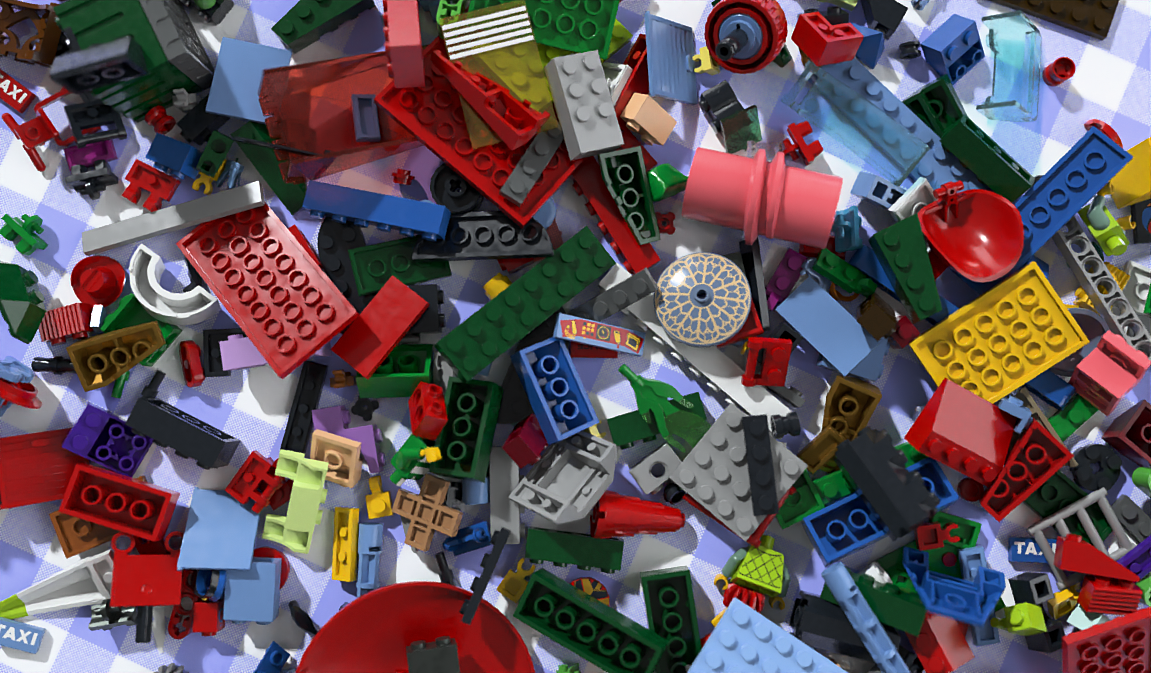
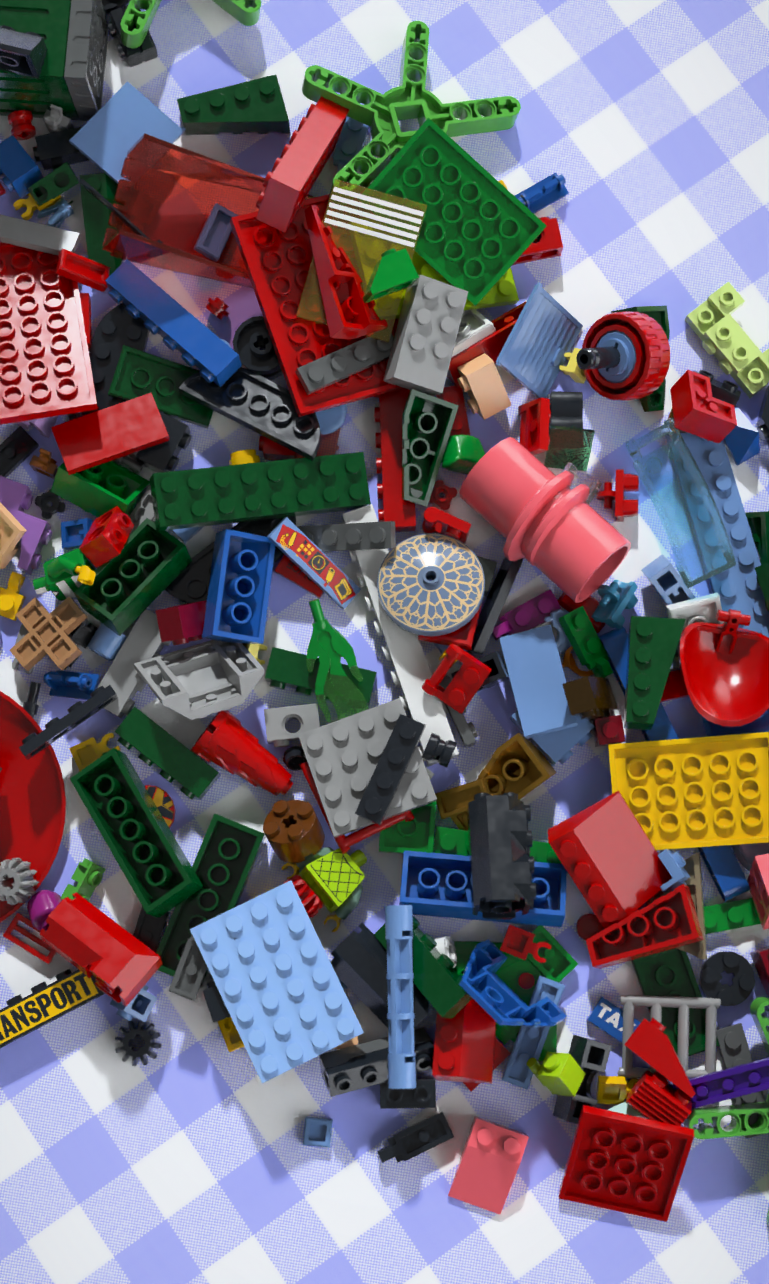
camera: 30 degrees right, 5 degrees down
(279, 209) = (82, 270): none -> red tile
(399, 419) = (74, 532): none -> blue bracket
(530, 71) = (390, 275): none -> green slope
(684, 245) = (443, 523): none -> red plate
(705, 127) = (535, 425): none -> red plate
(709, 552) = (293, 830): none -> reddish brown brick

